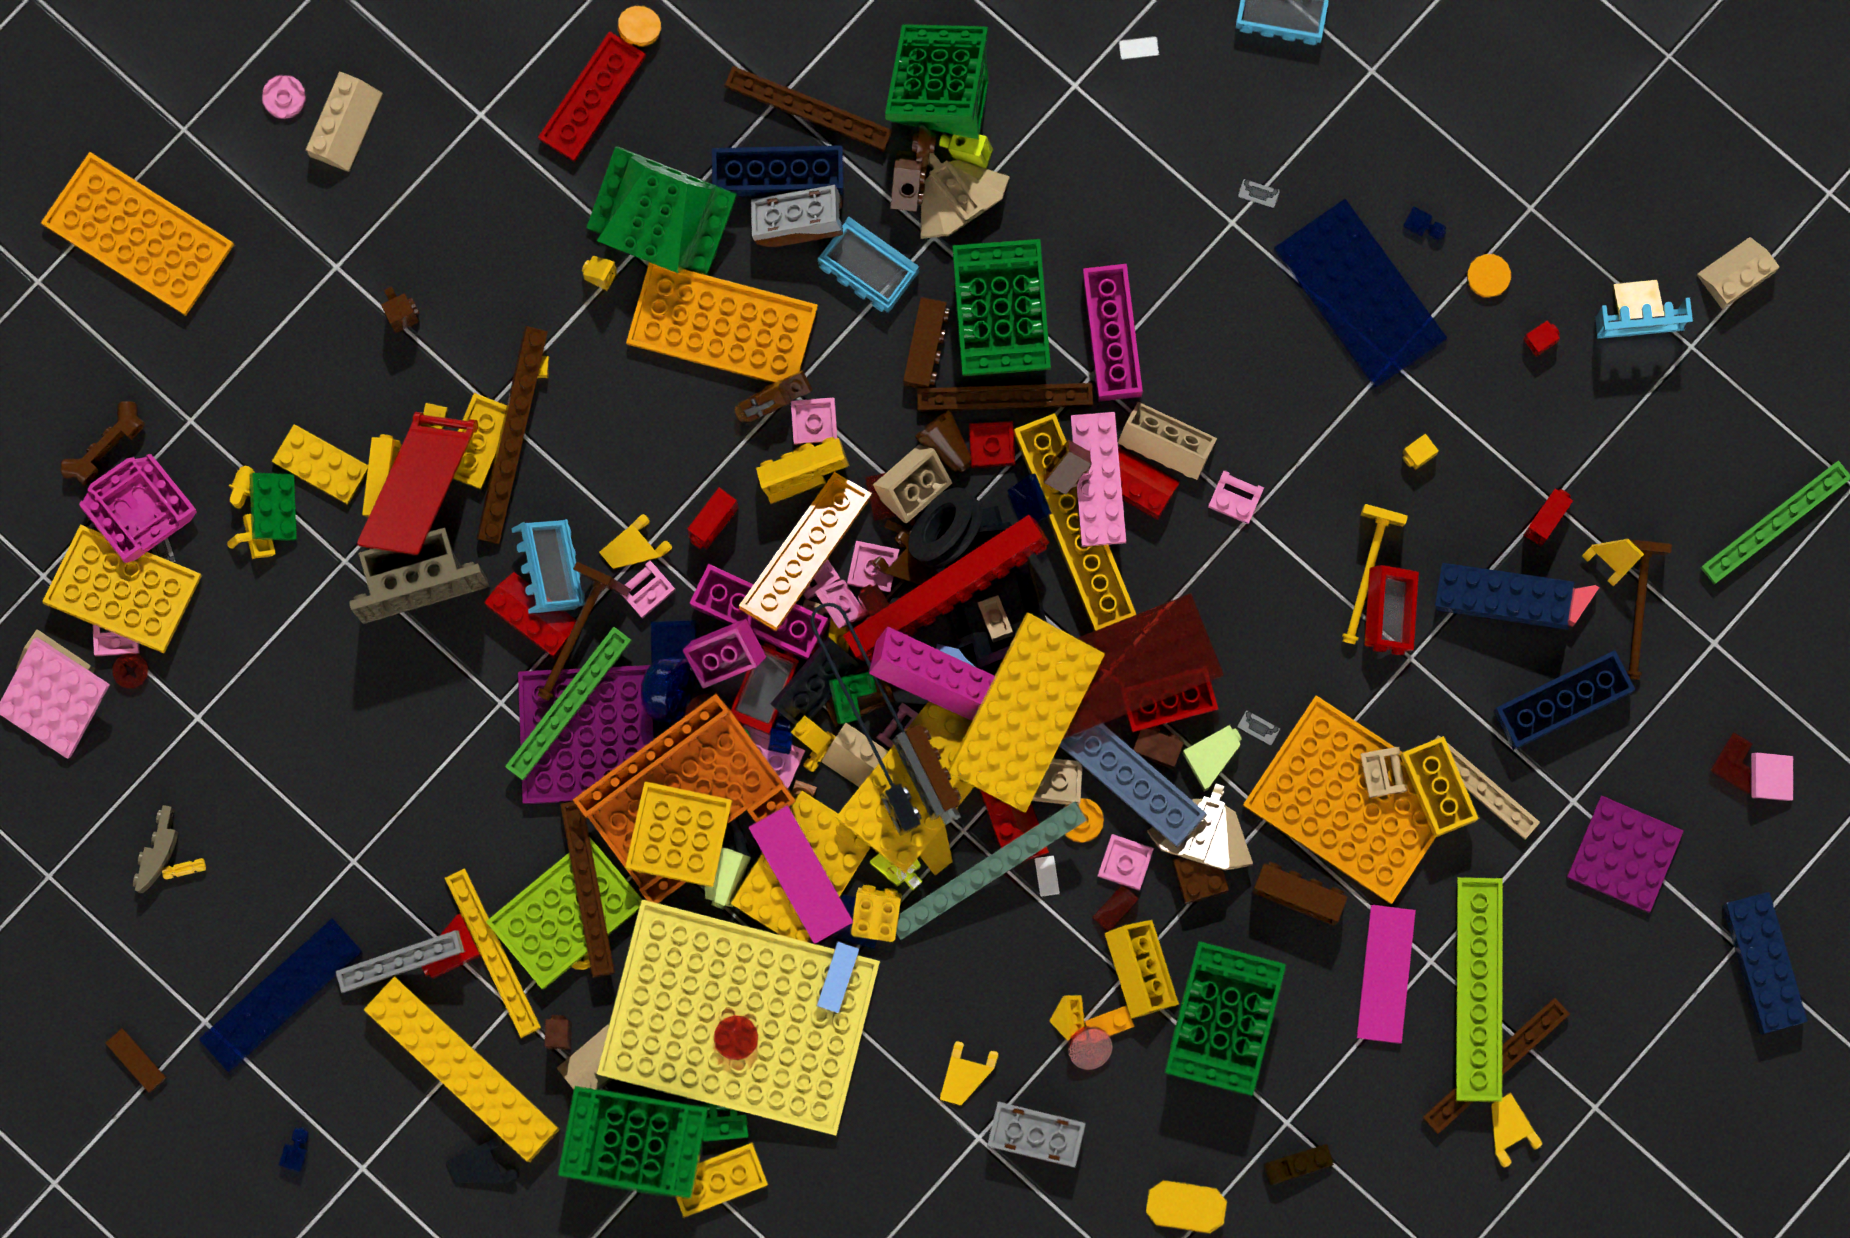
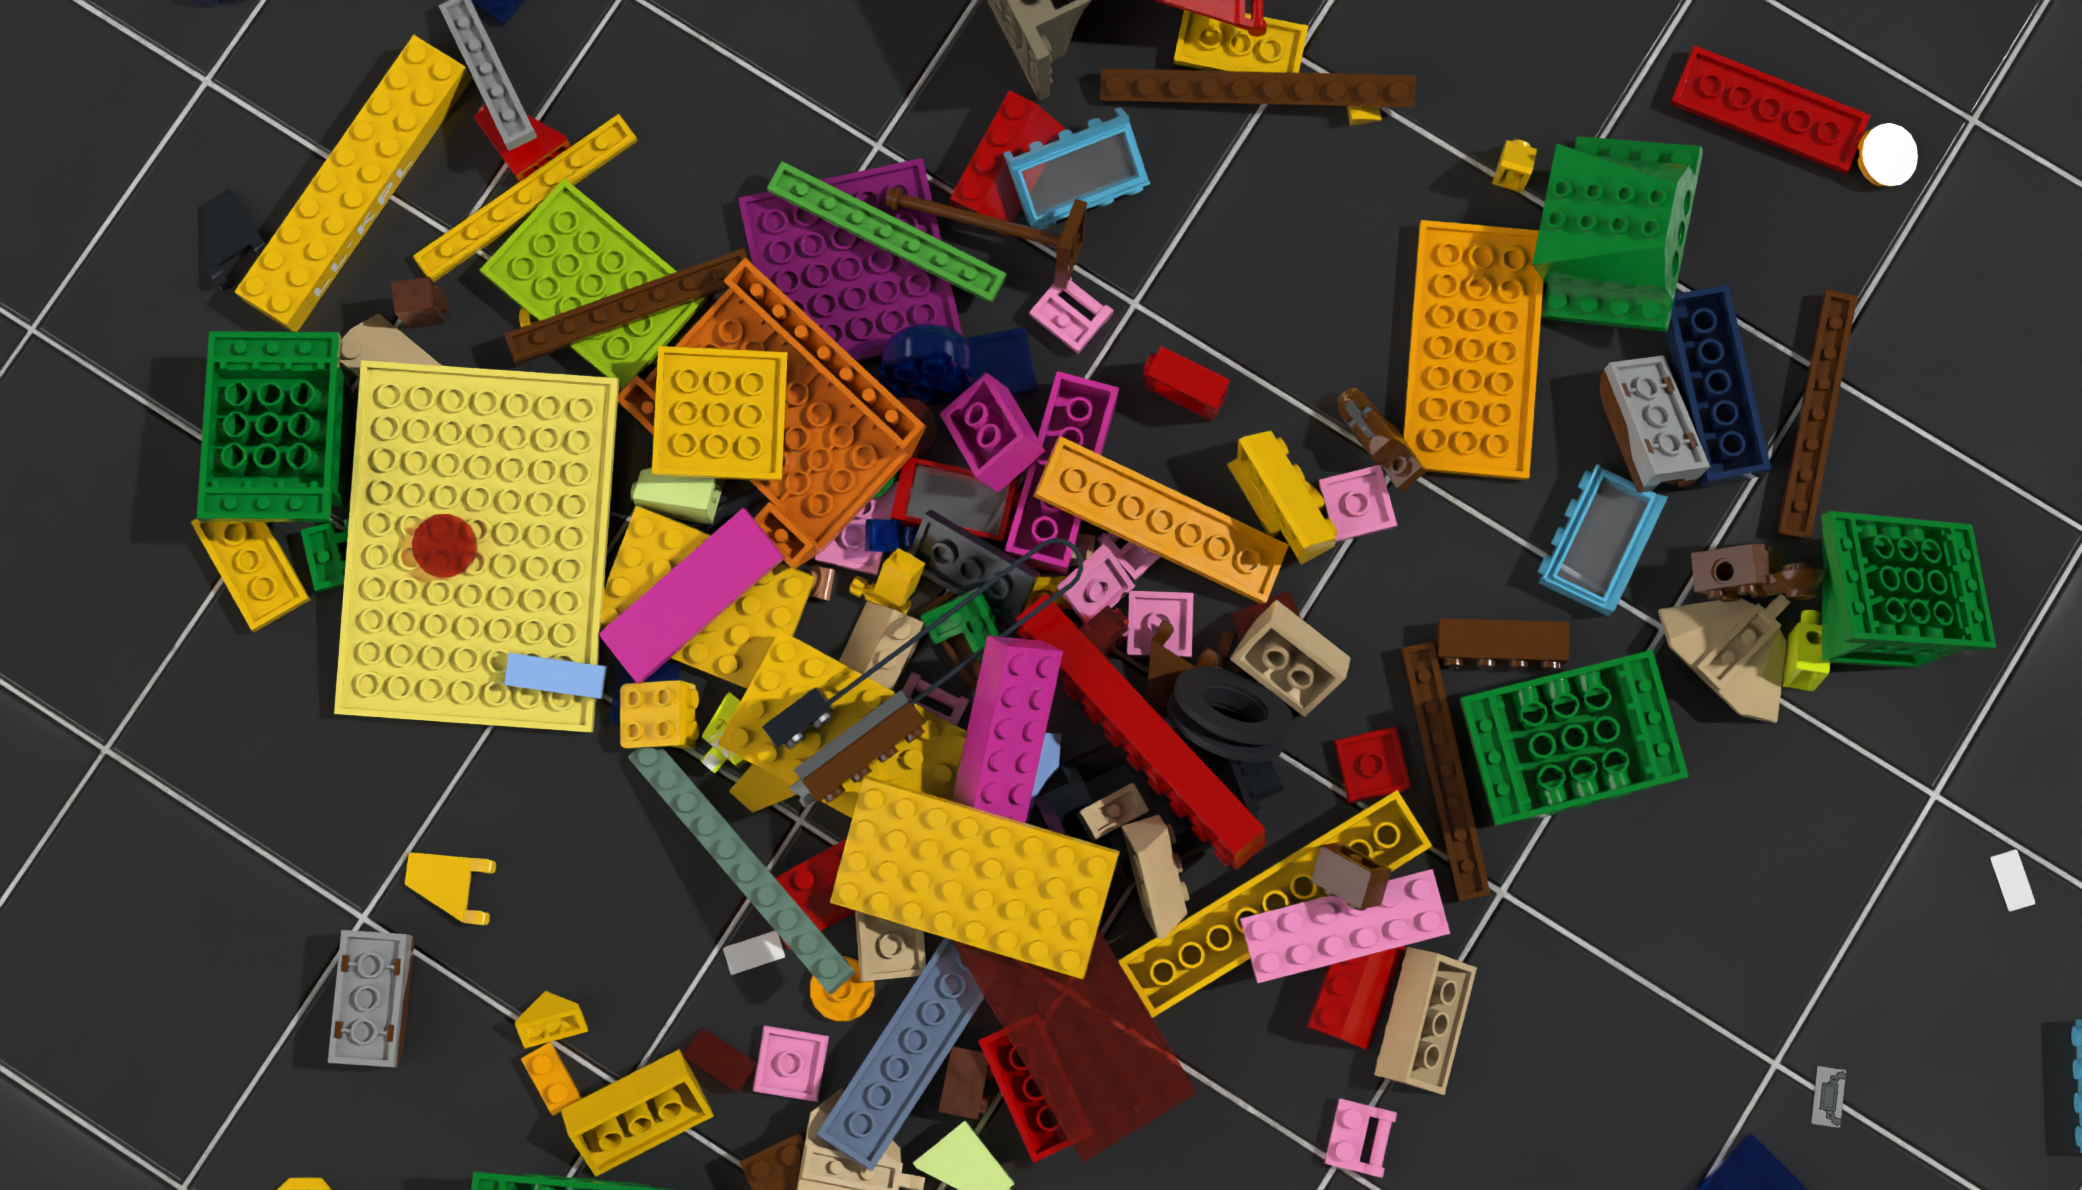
camera: 80 degrees right, 0 degrees up
(632, 547) = (1129, 283): yellow flag -> none
(947, 441) = (1361, 696): reddish brown cone -> none
(1029, 499) = (1296, 831): clear blue tile -> none
(1042, 596) = (1156, 873): none -> tan slope
(1089, 1047) = (509, 1055): clear red tile -> none
(1112, 332) = (1572, 911): dark pink brick -> none

